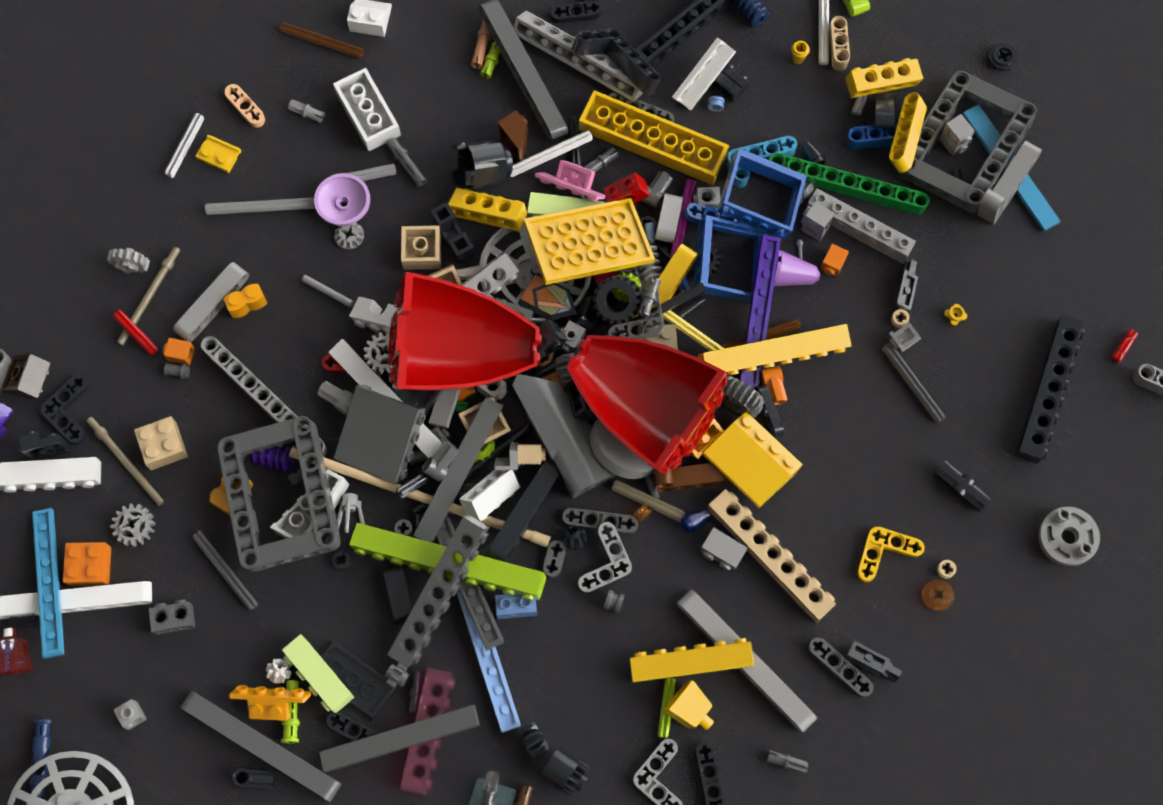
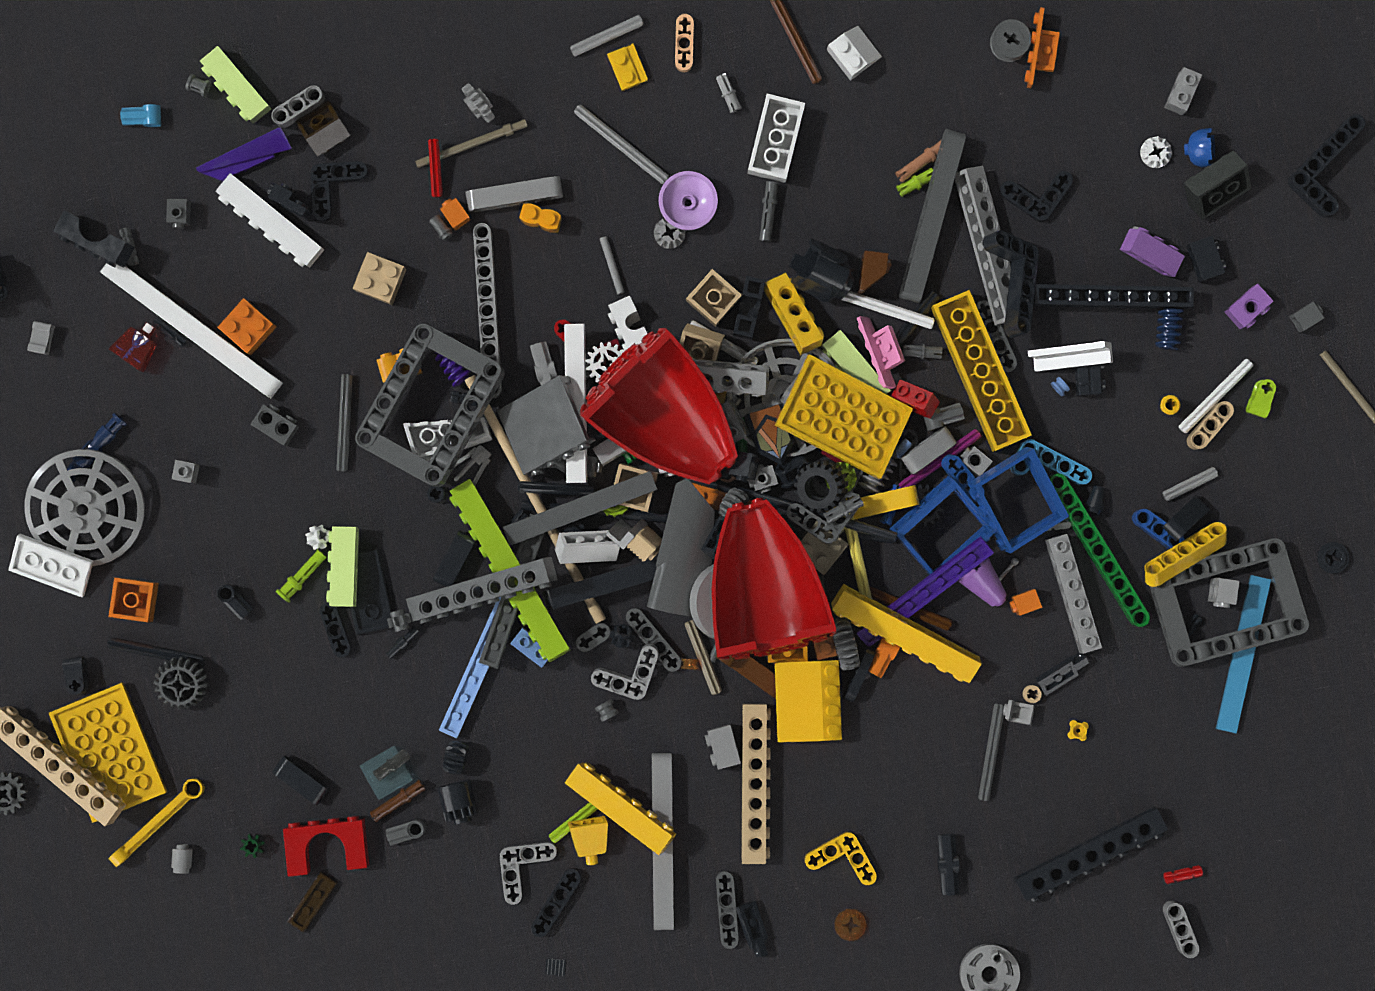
camera: 45 degrees right, 15 degrees up
(48, 583) = (206, 316): dark azure tile -> none
(102, 434) = (342, 228): dark tan bar -> none
(125, 527) = (304, 333): light grey gear -> none
(260, 746) = (259, 580): dark grey beam -> none
(269, 703) = (291, 555): light orange bracket -> none
(375, 172) = (733, 195): light grey axle -> none
(399, 738) = (360, 669): dark grey tile -> none
(400, 526) = (495, 513): dark grey bush -> none
(433, 679) = (342, 706): clear pink brick -> none
(438, 464) = (568, 491): dark grey piece -> none
(695, 519) = (723, 704): clear blue cone -> none
(727, 413) = (825, 648): none -> dark orange brick
(787, 762) = (623, 939): dark grey axle -> none
(816, 221) = (1041, 559): light grey brick -> none
(860, 87) = (1239, 506): yellow brick -> none
(951, 565) = (869, 911): tan bush -> none
(996, 200) = (1226, 667): light grey beam -> none

